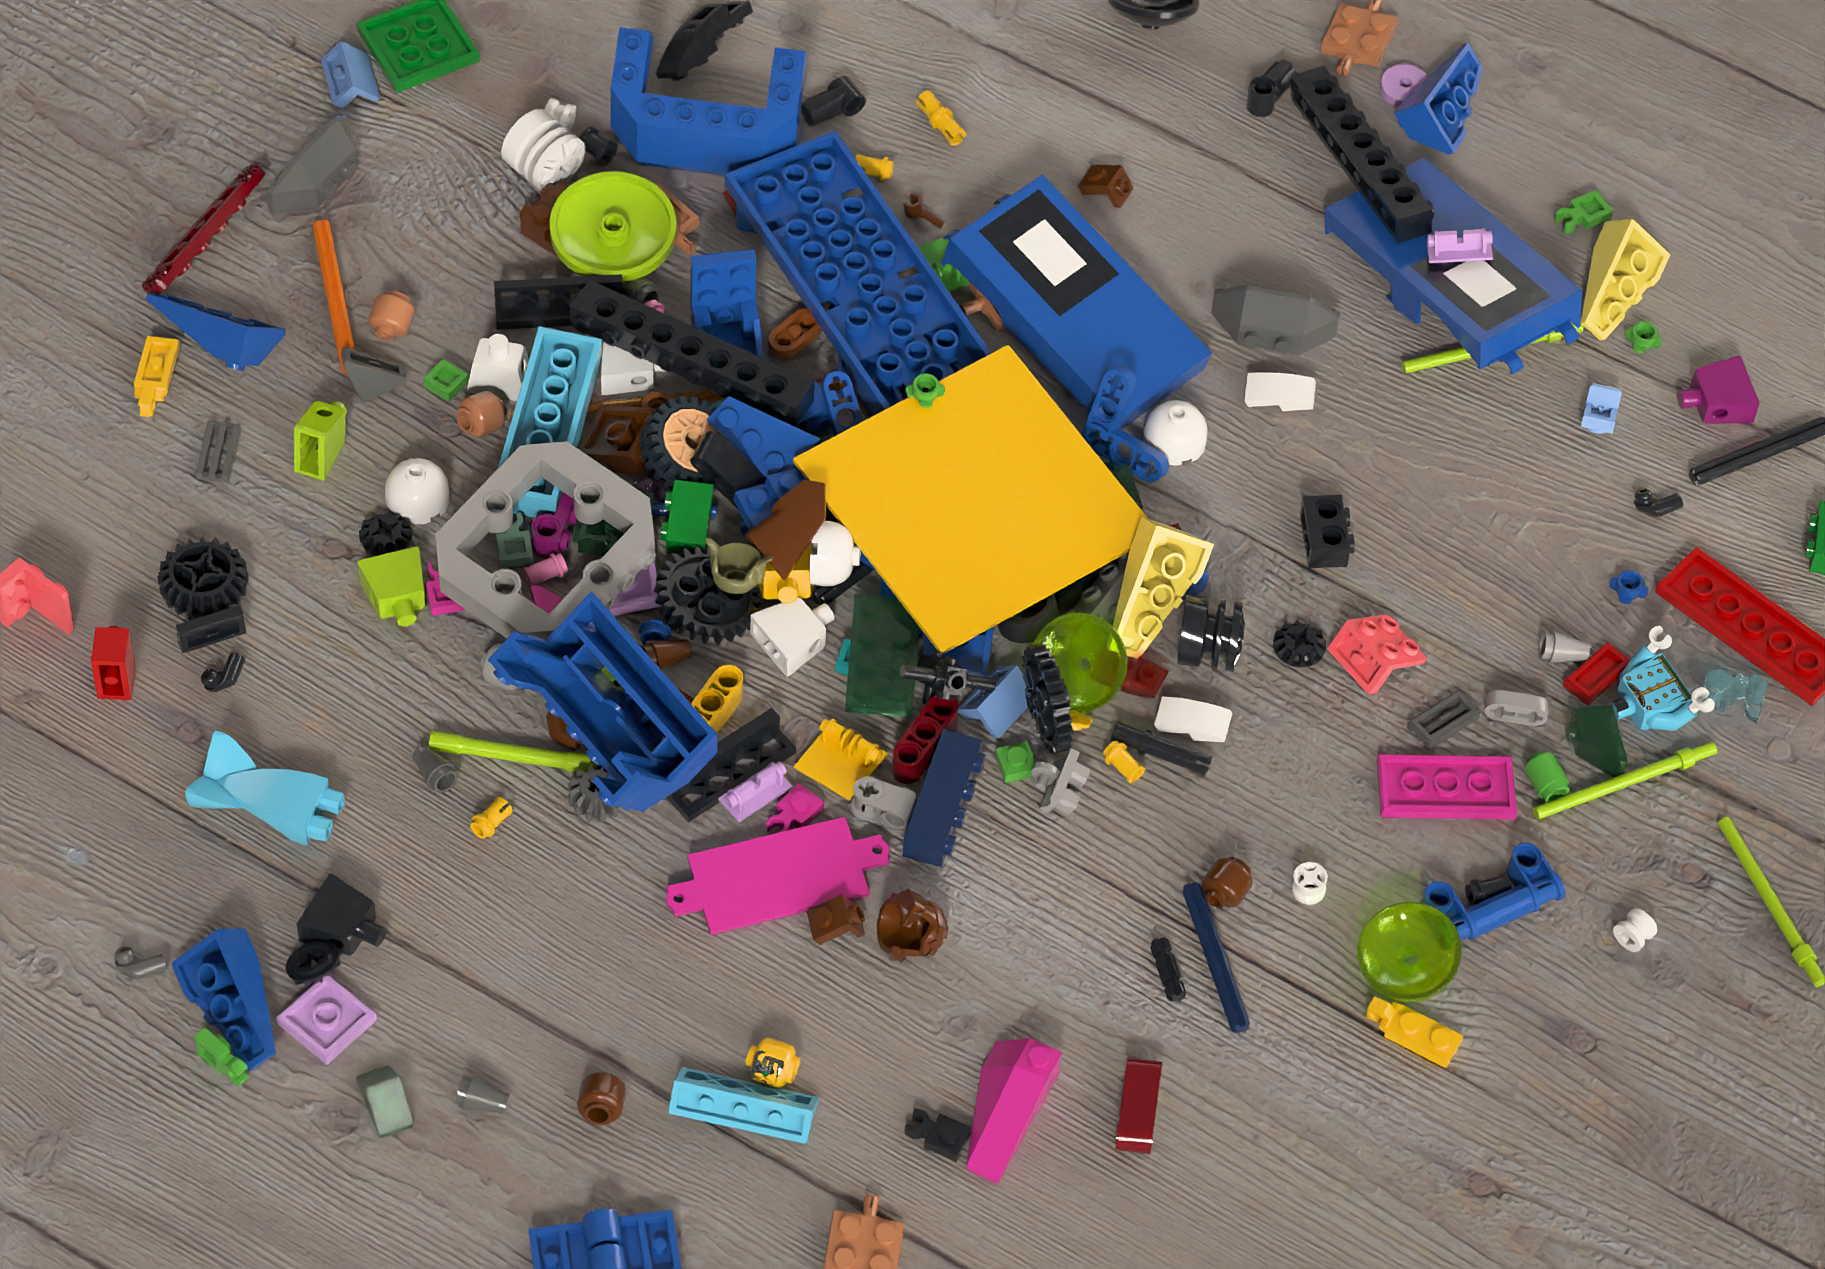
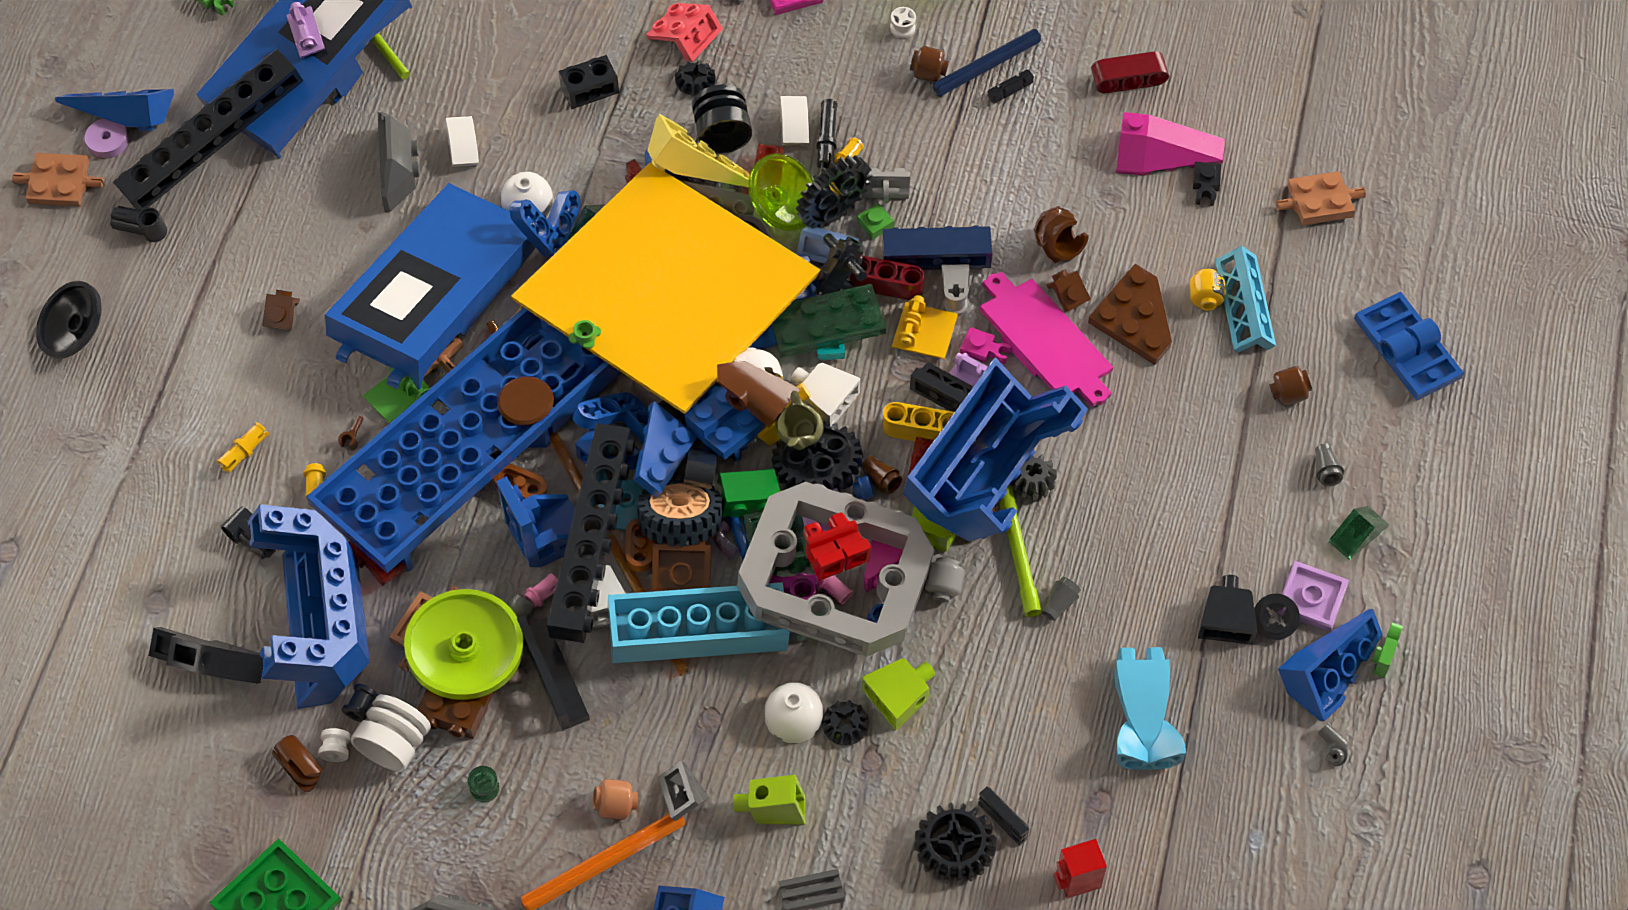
camera: 105 degrees left, 5 degrees up
(217, 681) = (1041, 790): black arm -> none
(438, 602) = (887, 656): dark pink plate -> none
(445, 380) = (667, 731): bright green plate -> none
(464, 228) = (486, 790): none -> clear green wheel
(481, 414) = (697, 688): nougat head -> none
(484, 824) = (1086, 543): yellow pin -> none
(498, 367) = (648, 684): white torso -> none
(550, 528) = (836, 547): none -> red hips
(554, 84) = (297, 762): none -> reddish brown arm
(774, 983) = (1135, 315): none -> reddish brown plate
(874, 334) = (525, 400): none -> reddish brown piece

